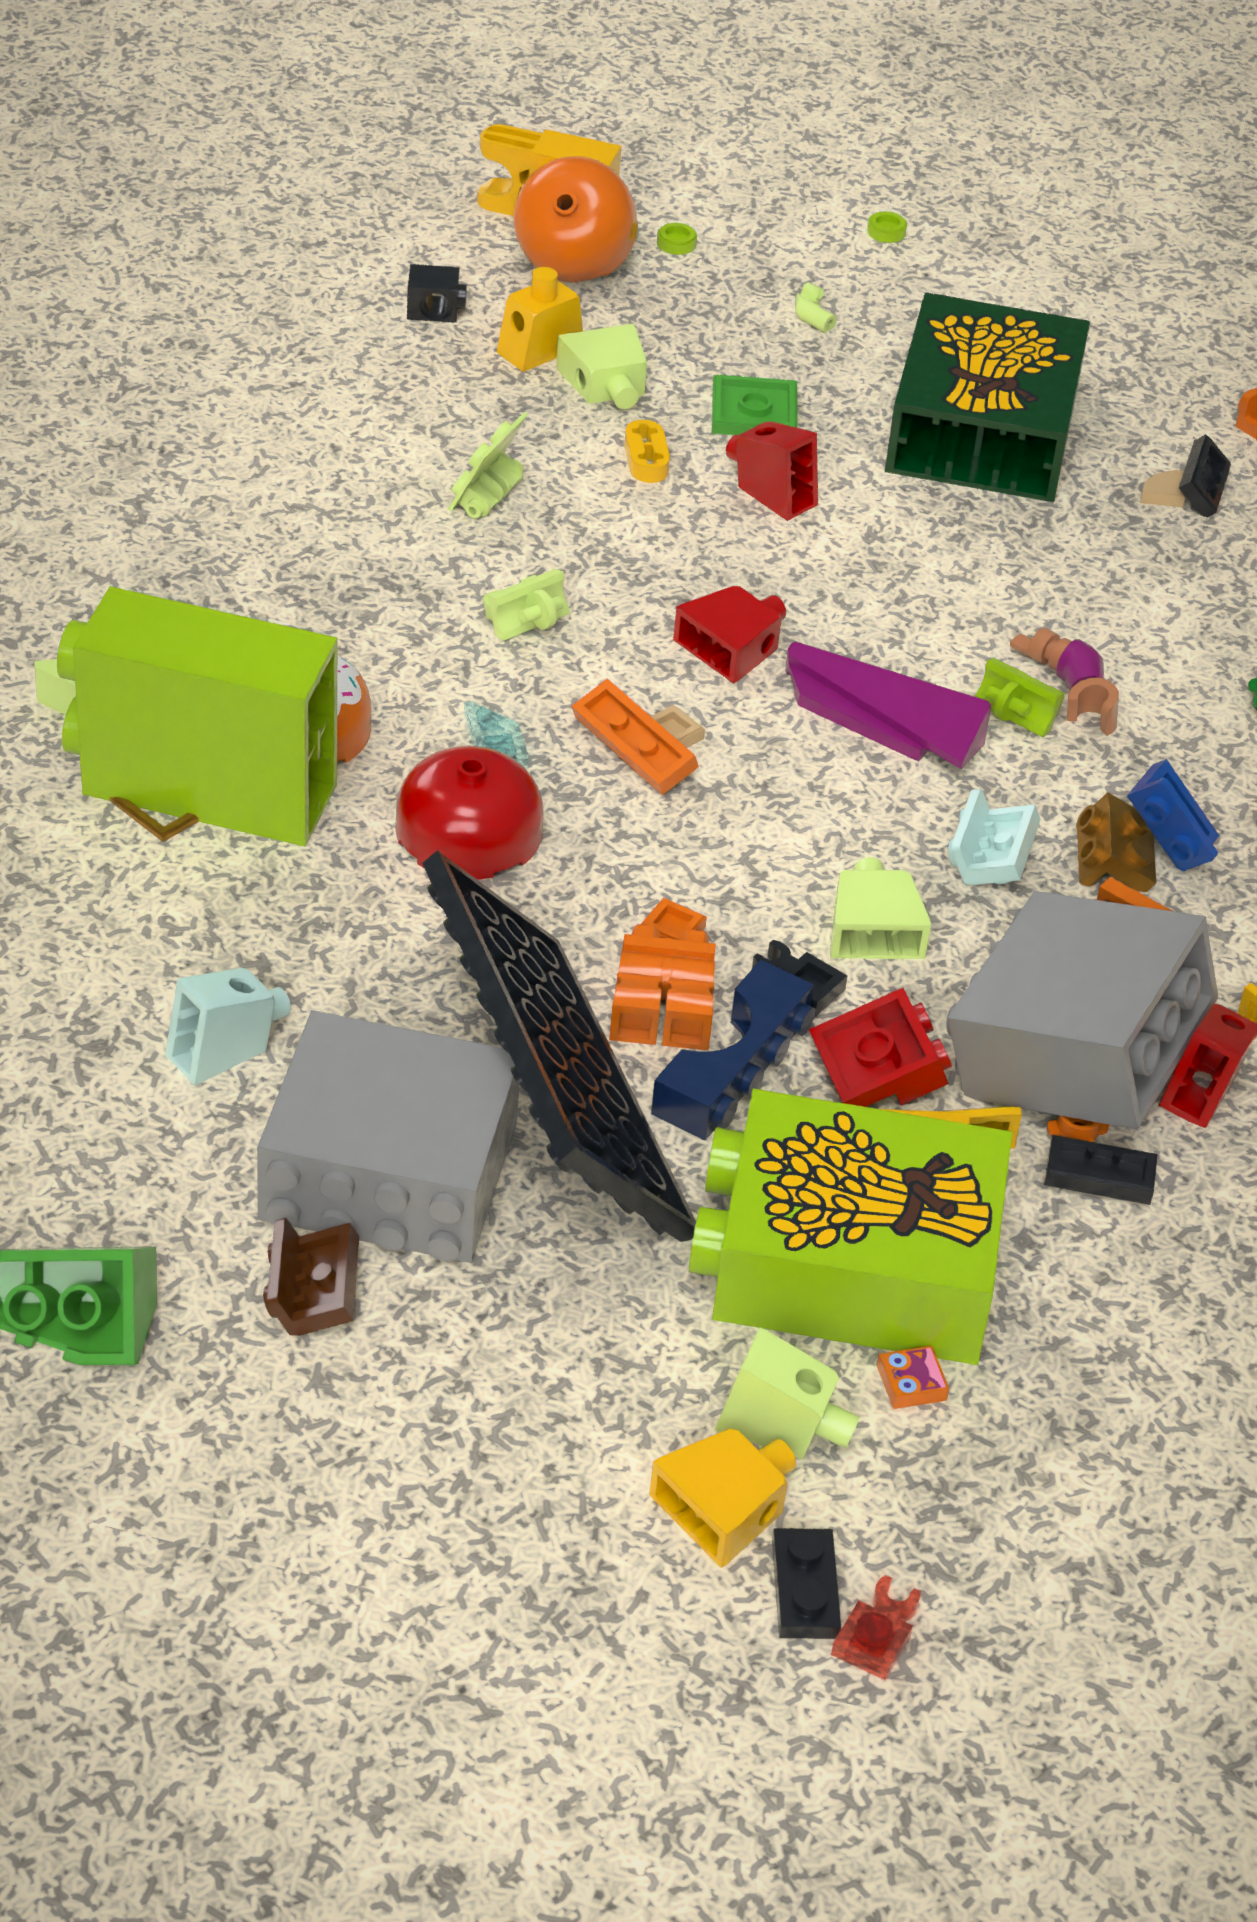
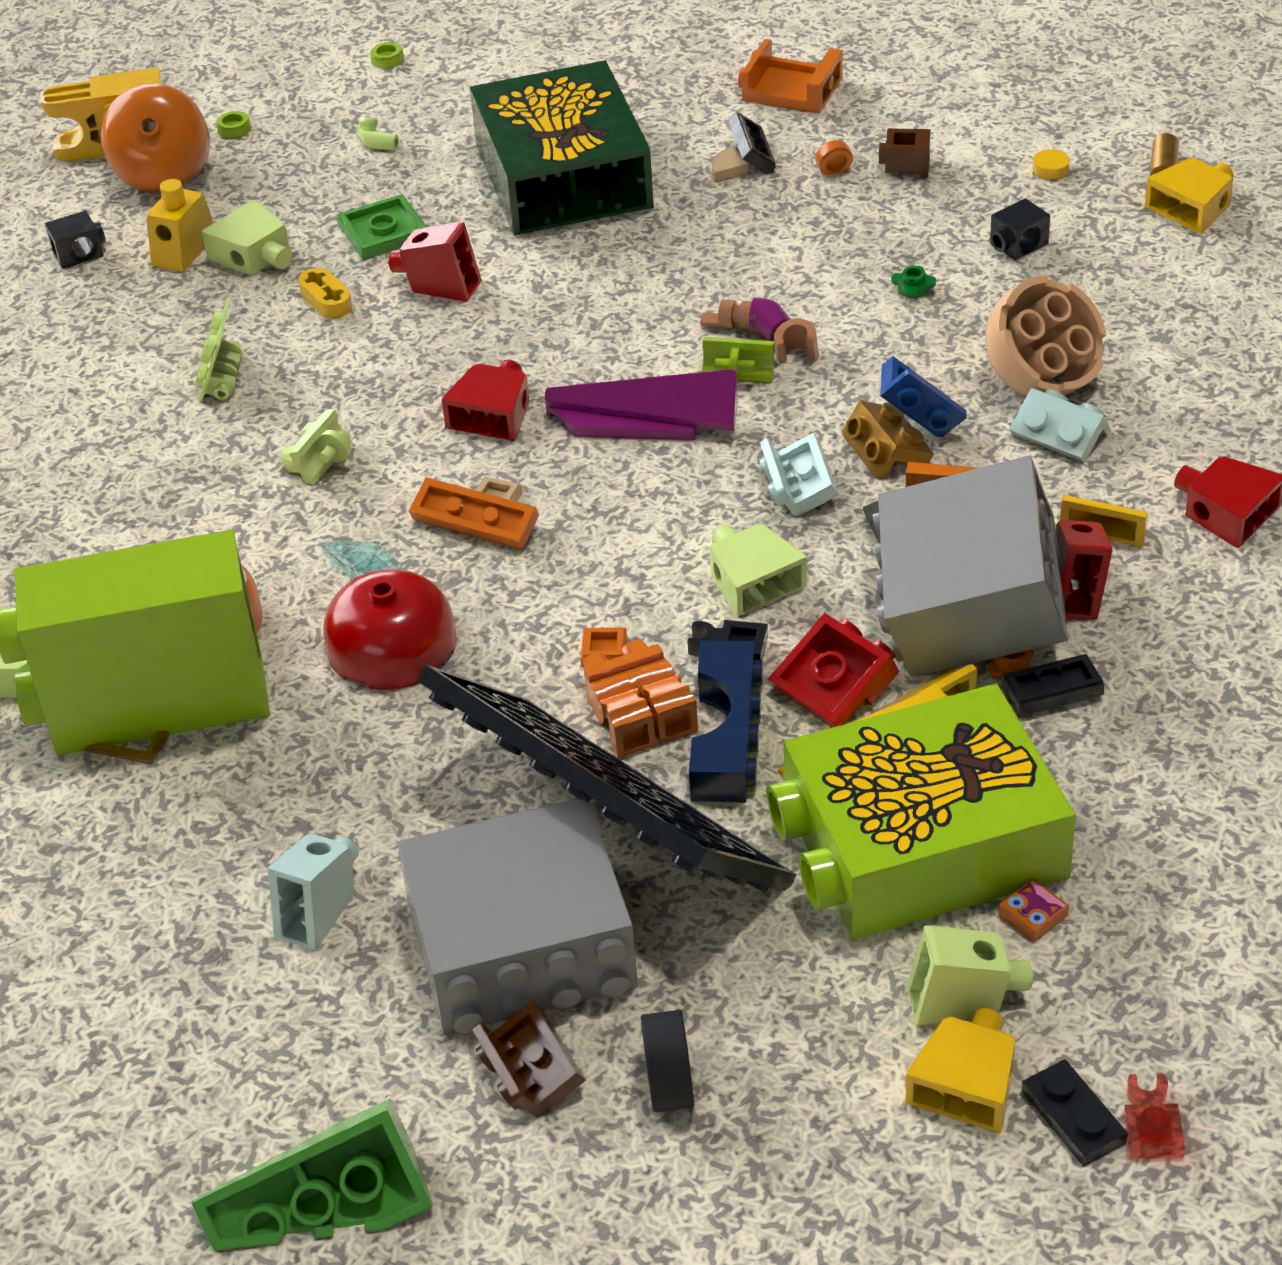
camera: 20 degrees left, 0 degrees up
(435, 1338) = (667, 1061): none -> black tyre

